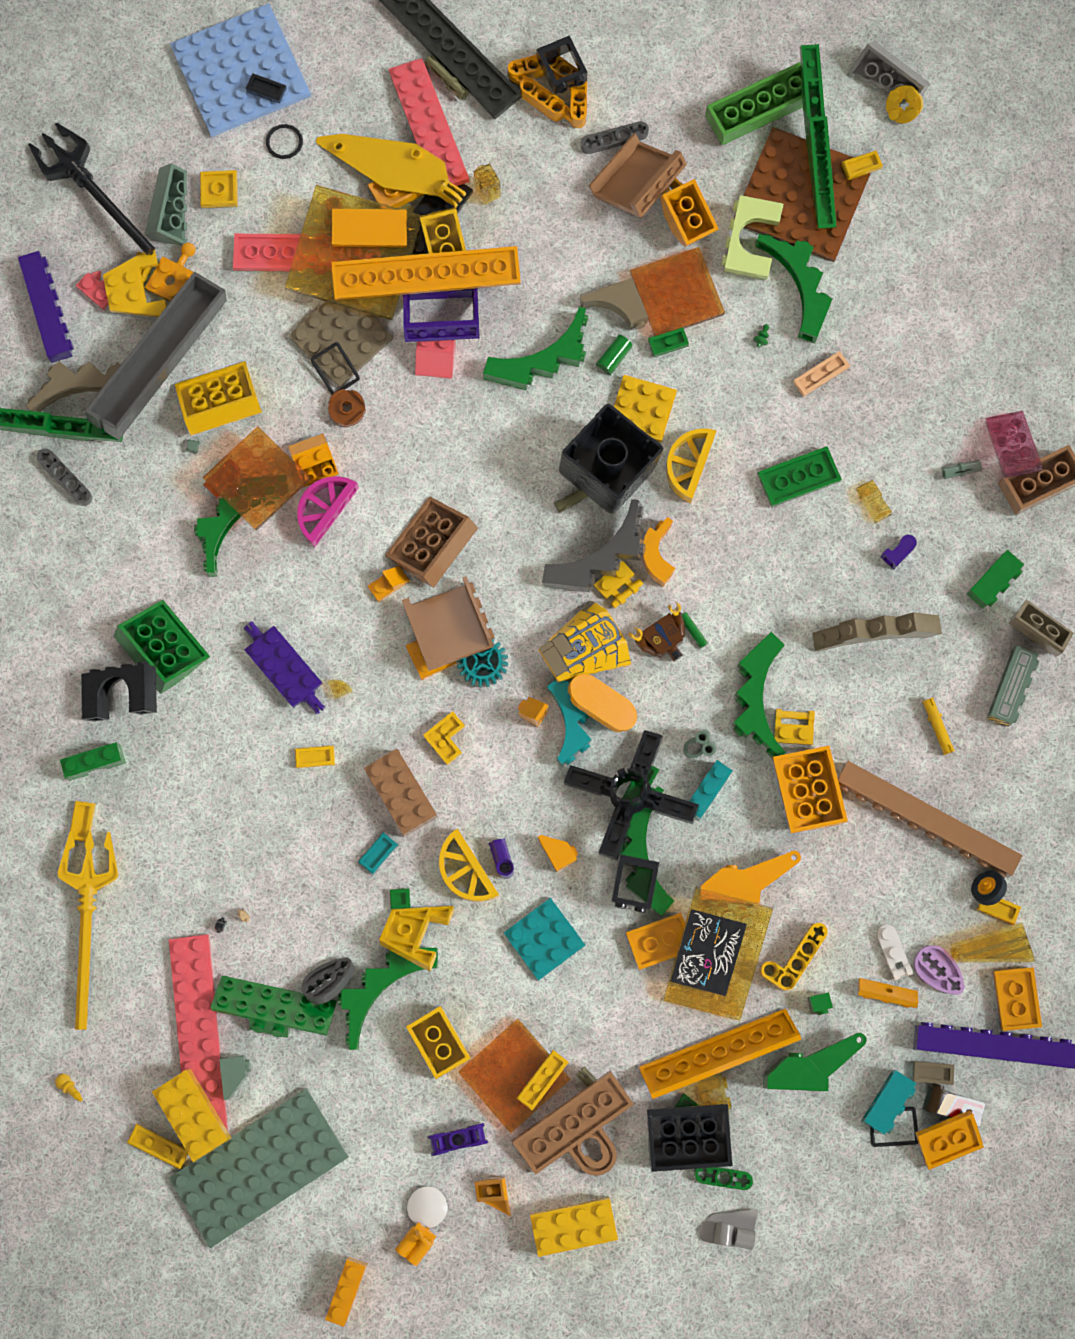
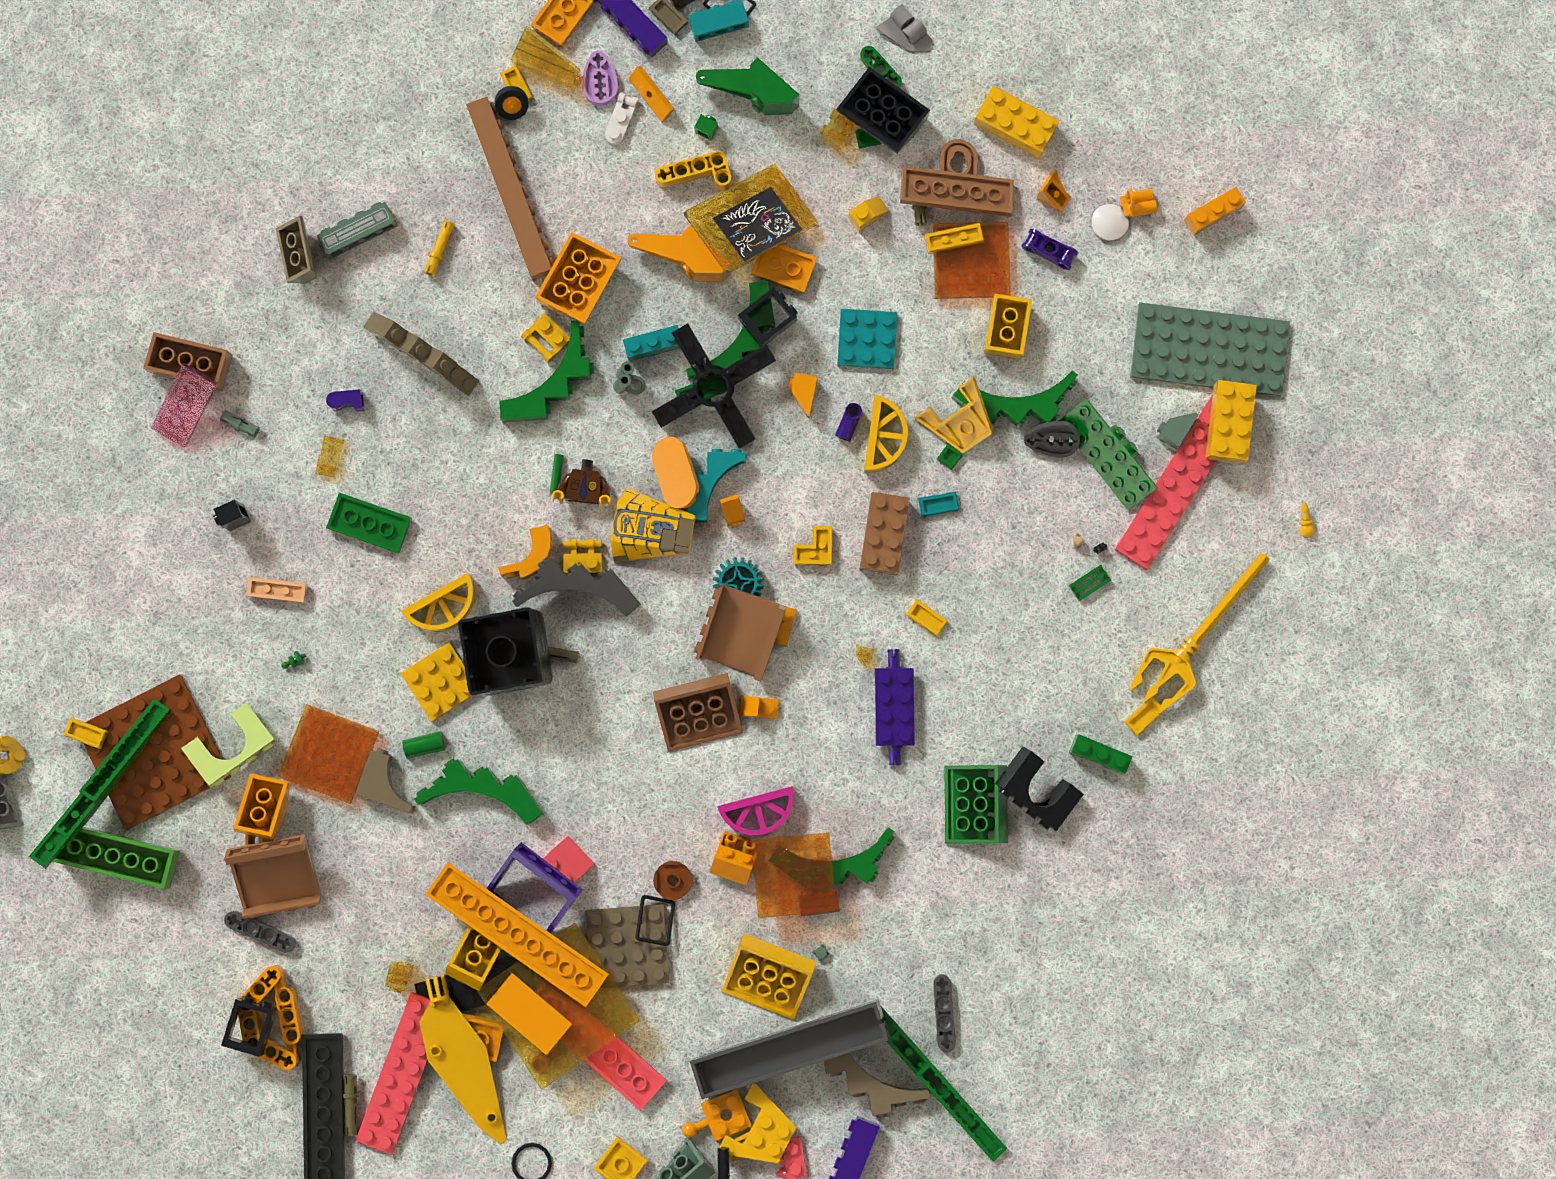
camera: 140 degrees left, 5 degrees up
(158, 1146) = (1272, 425): yellow tile -> none
(207, 889) = (1076, 591): none -> green tile
(630, 1044) = (867, 213): none -> yellow slope
(668, 342) = (372, 718): green plate -> none
(719, 1053) = (810, 151): light orange plate -> none
(807, 279) = (218, 673): green arch -> none
(903, 395) = (231, 515): none -> black piece
(996, 579) = (294, 318): green brick -> none

